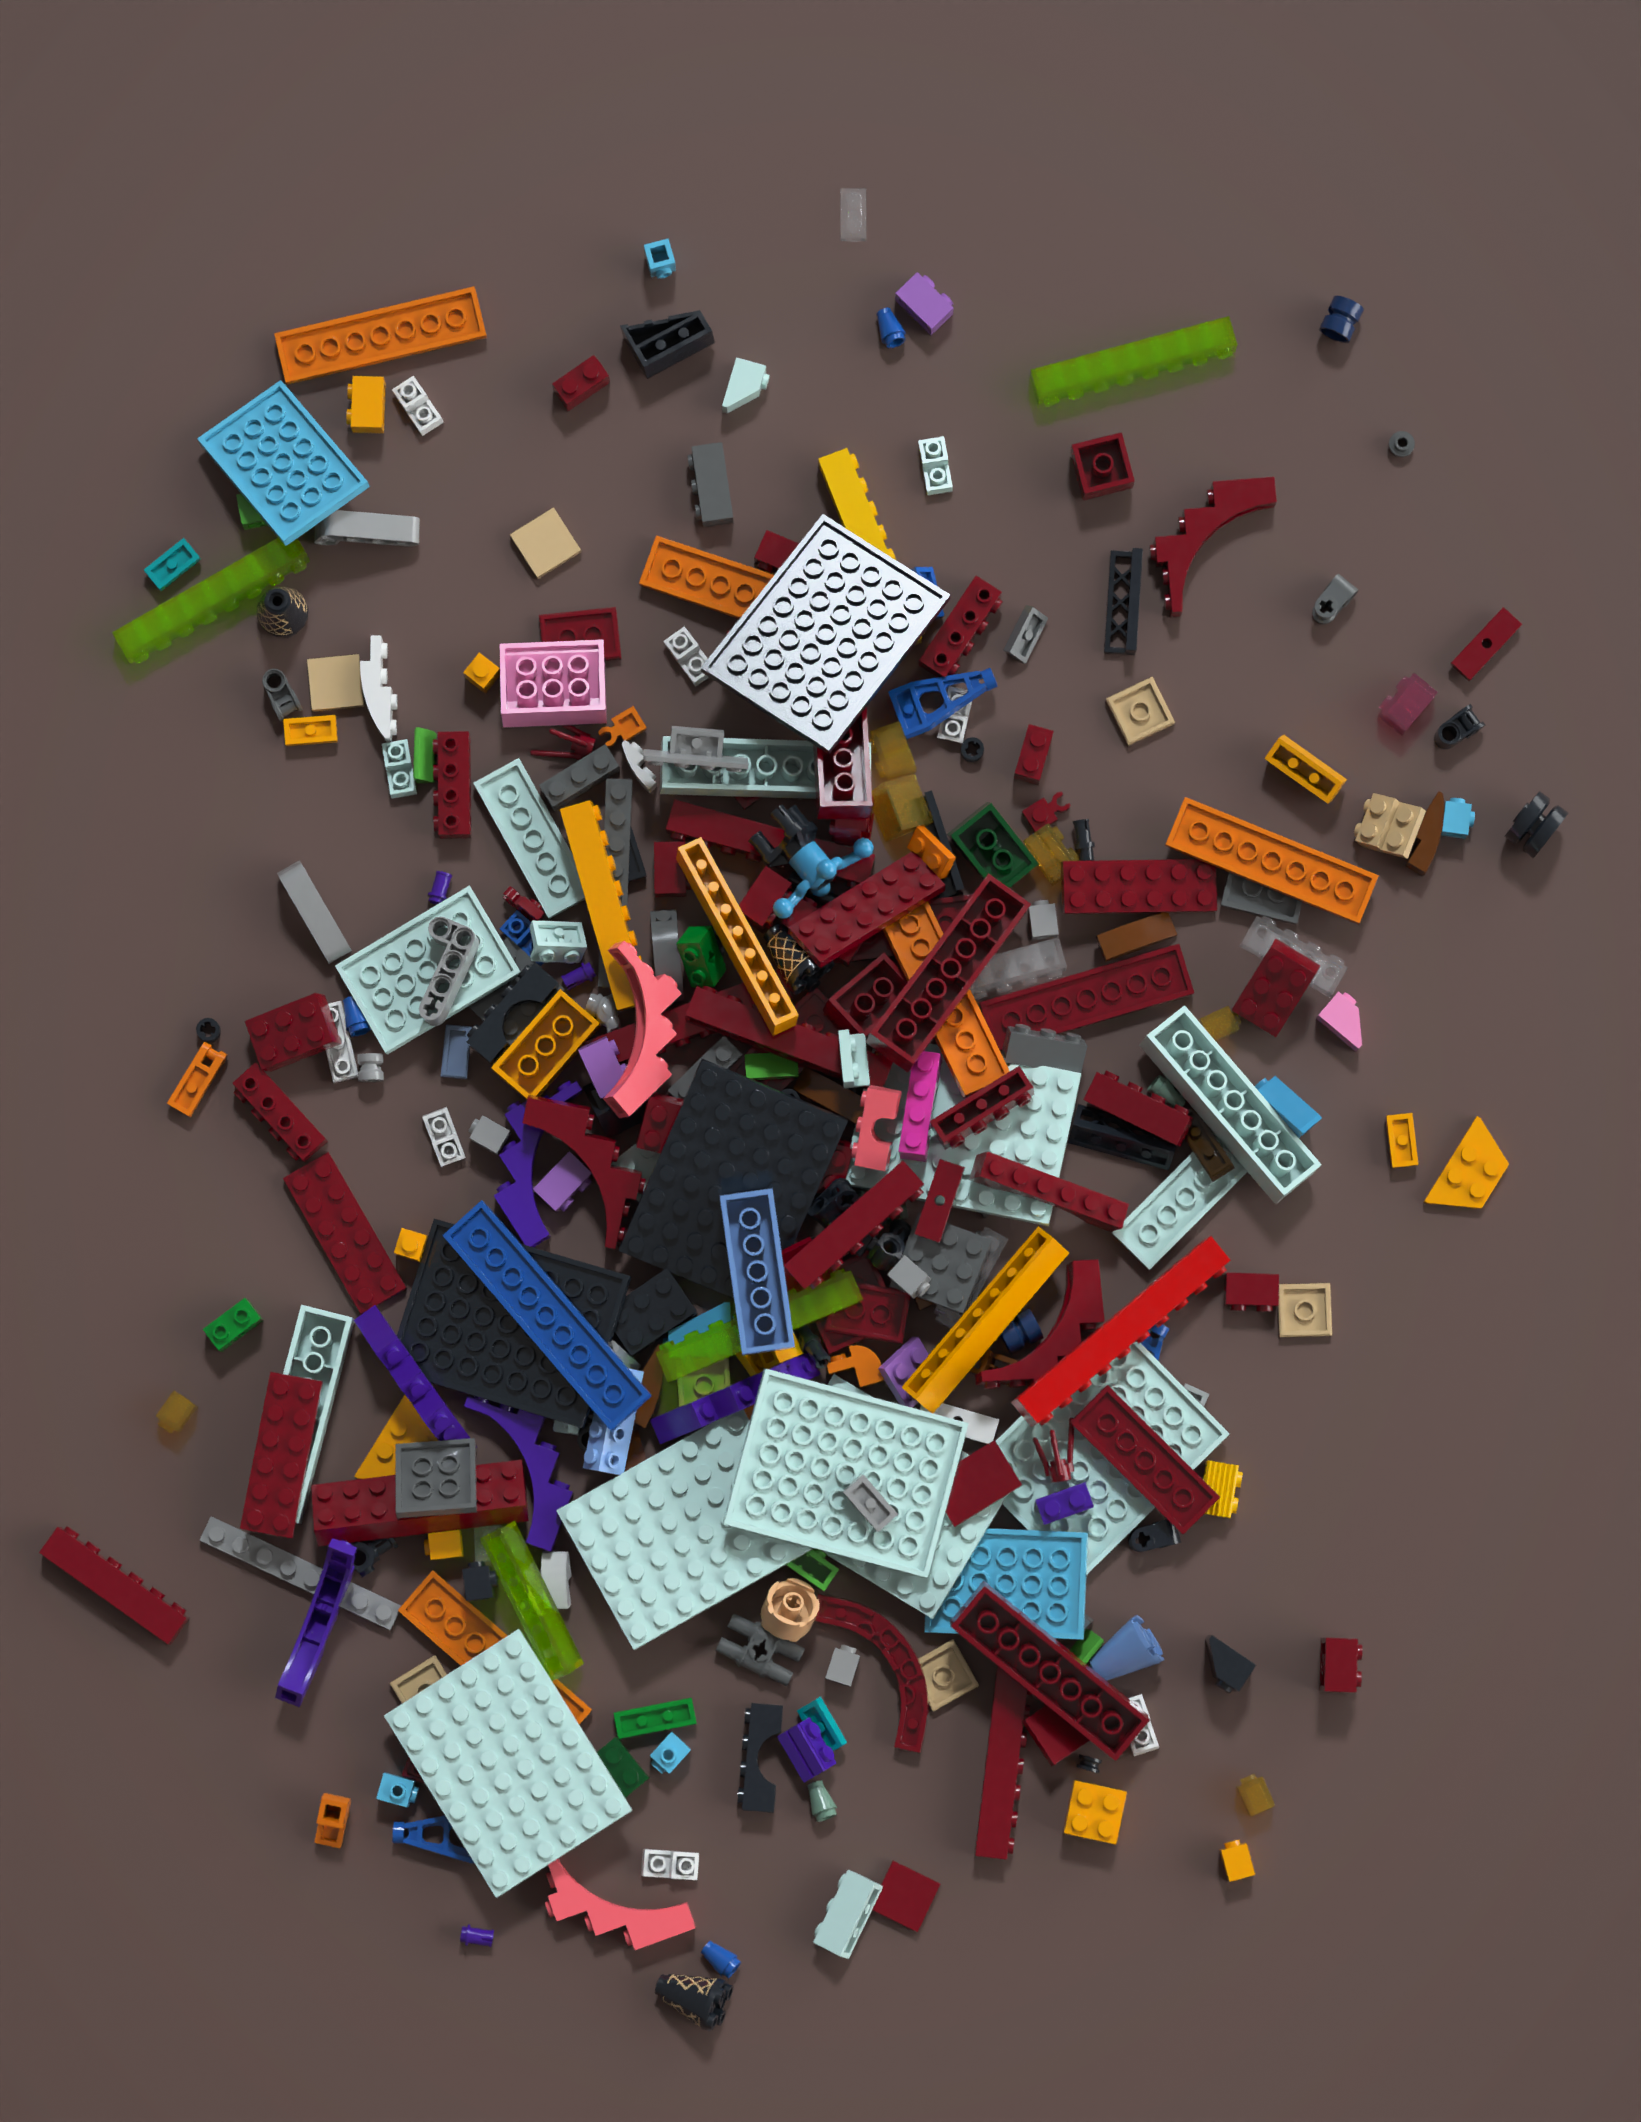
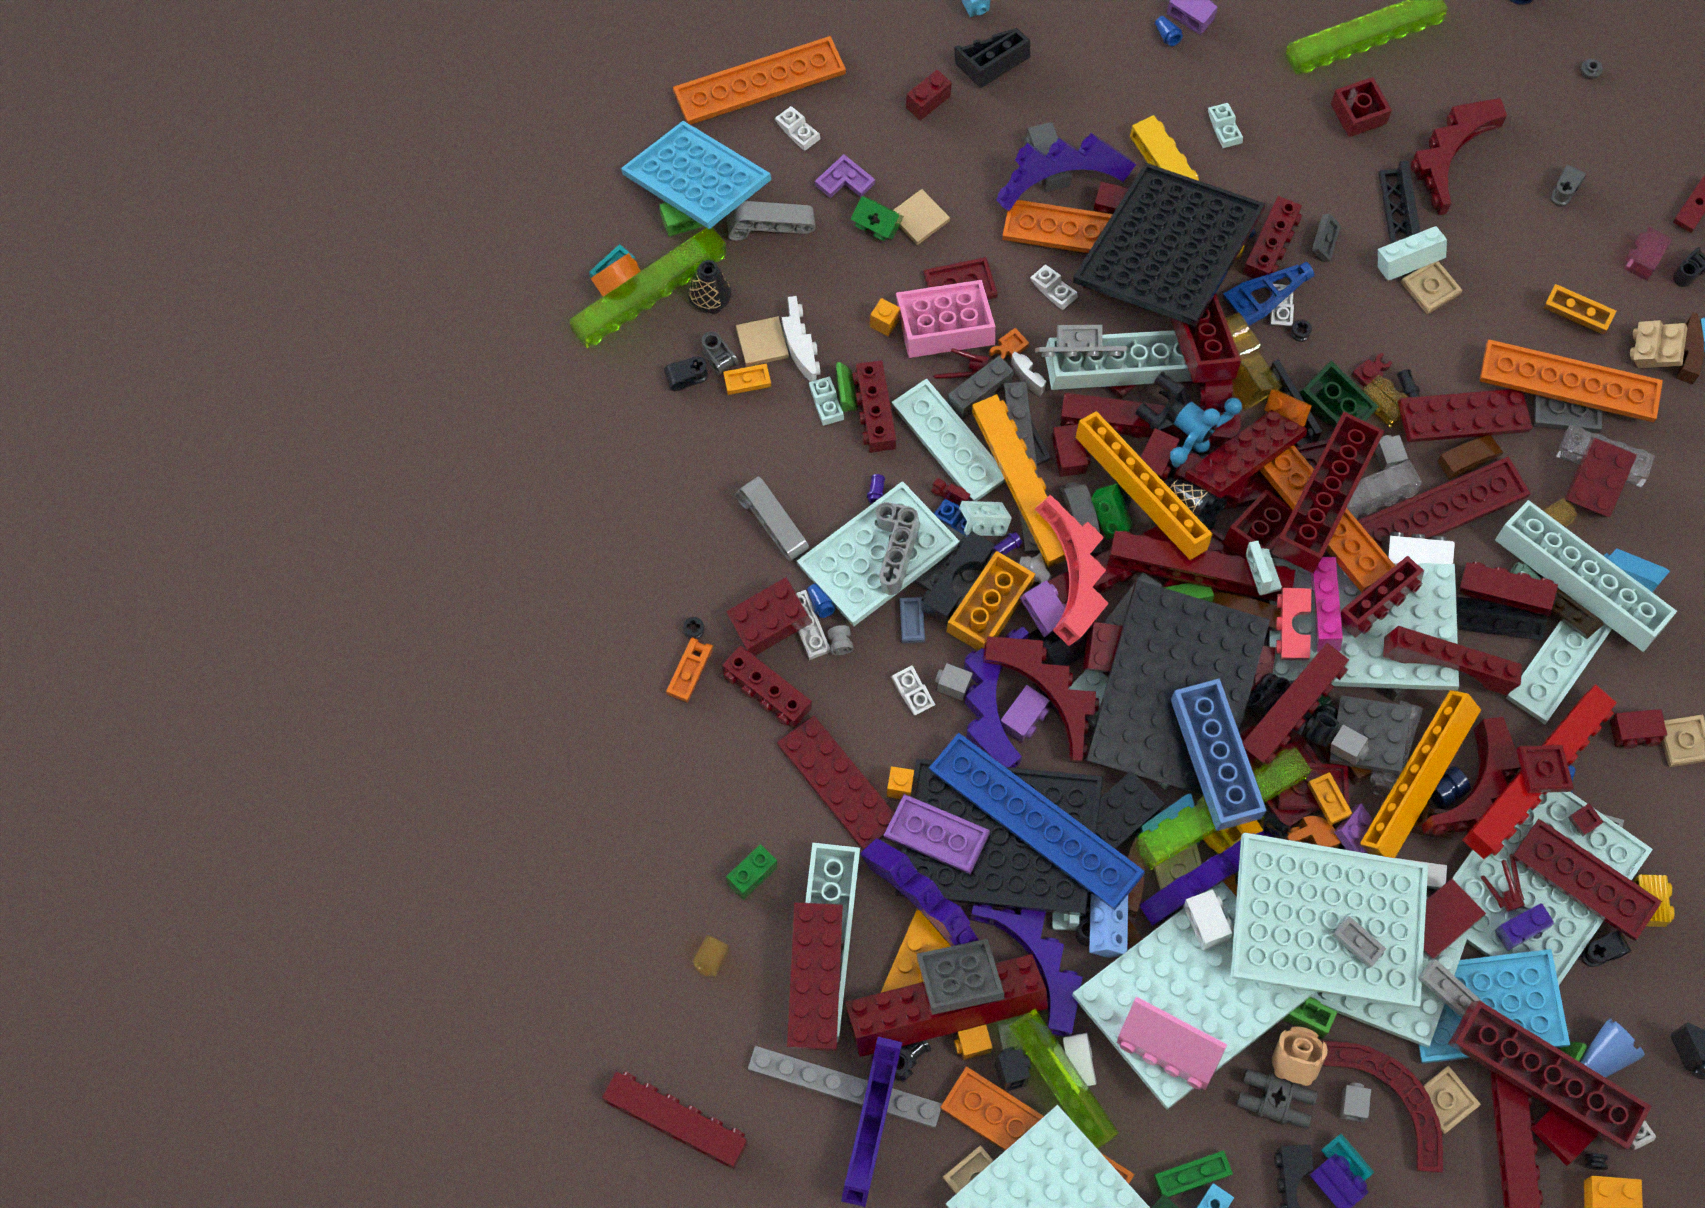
camera: 10 degrees left, 15 degrees down
(173, 583) = (616, 274): none -> orange brick
(236, 716) = (684, 373): none -> black piece
(367, 404) = (757, 129): light orange brick -> none
(440, 1311) = (937, 834): none -> medium lavender tile
(466, 475) = (843, 173): none -> medium lavender plate
(488, 531) = (888, 218): none -> green brick
(641, 1590) = (1171, 1044): none -> bright pink slope
(714, 1453) = (1208, 919): none -> white brick
(744, 384) = (1061, 81): light aqua slope -> none
(761, 498) = (1063, 157): none -> dark purple arch
(880, 1331) = (1329, 798): none -> light orange plate
(945, 1184) = (1362, 665): dark red tile -> none
(964, 1562) = (1447, 987): none -> light grey plate
(1033, 754) = (1353, 326): dark red brick -> none
(1121, 670) = (1412, 253): none -> light aqua brick
(1121, 1334) = (1545, 769): none -> dark red tile
(1160, 1392) = (1586, 819): none -> dark red plate
(1343, 1019) = (1660, 501): bright pink slope -> none

